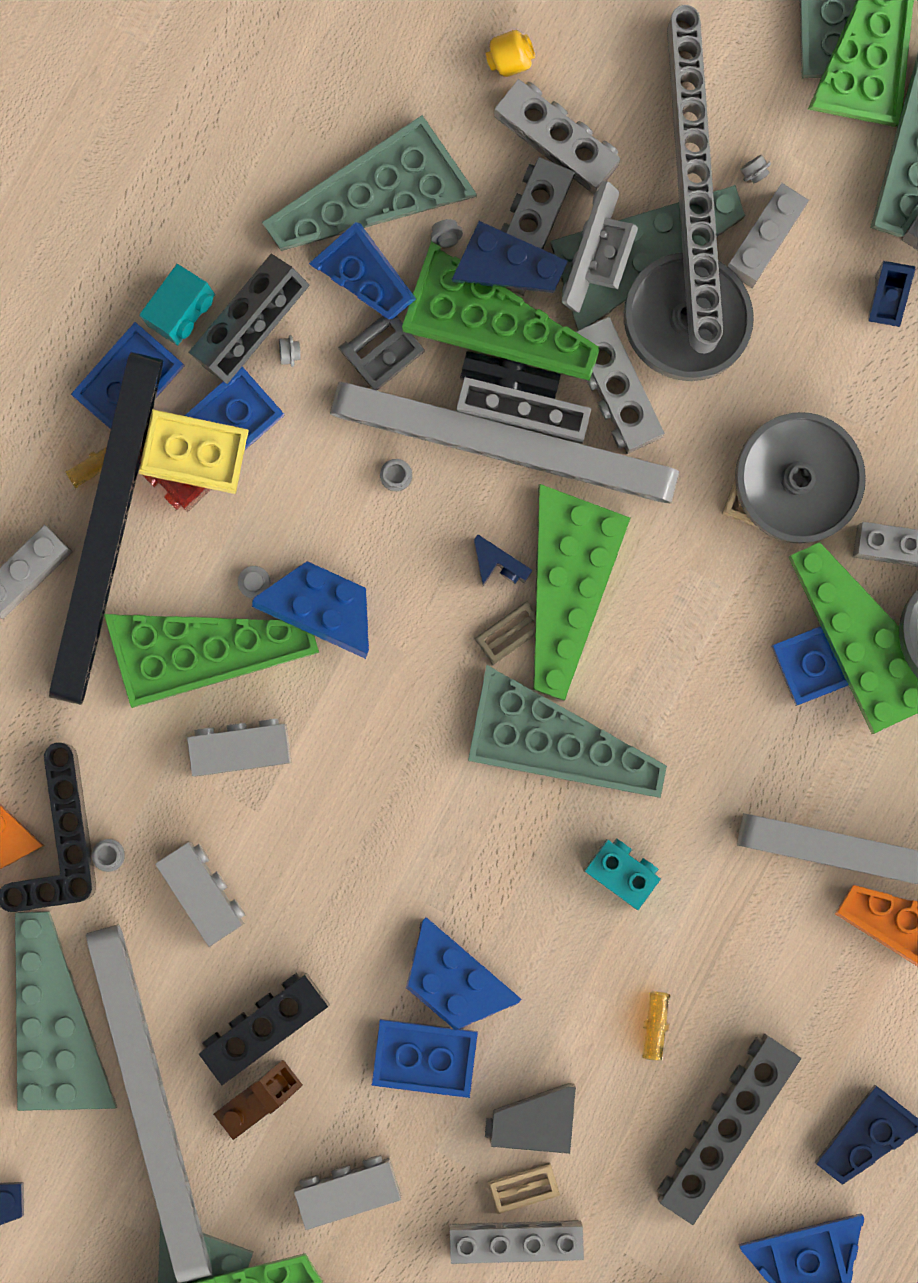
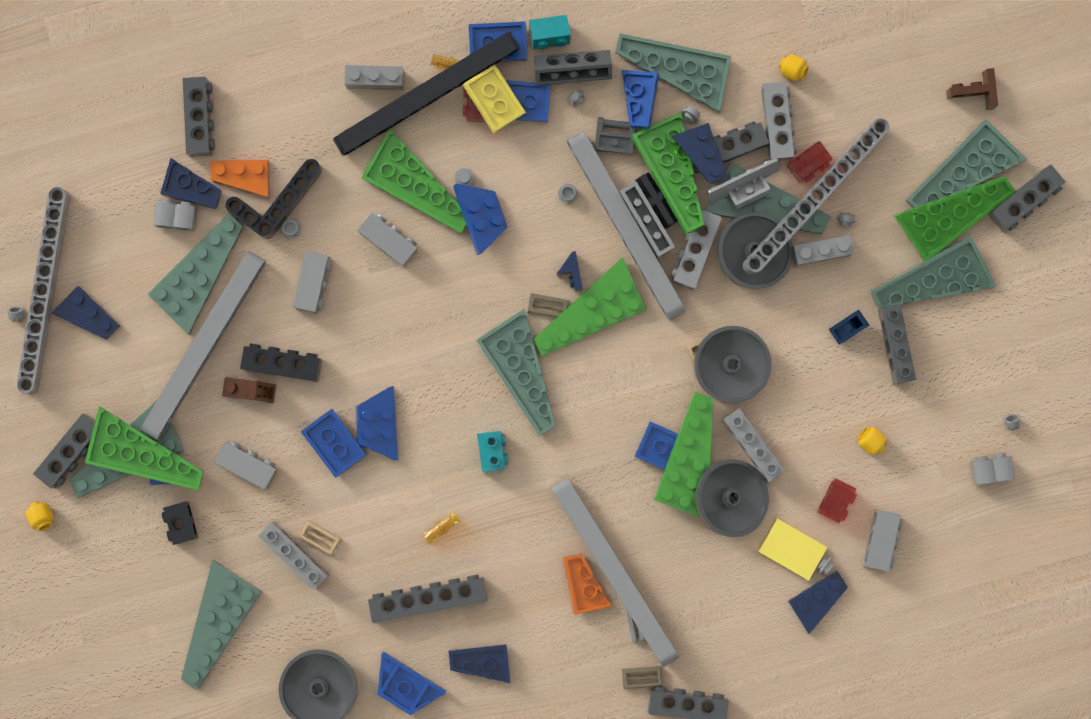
camera: 40 degrees right, 0 degrees up
(535, 1122) = (351, 516): dark grey slope -> none
(644, 146) = (809, 162): none -> clear red brick

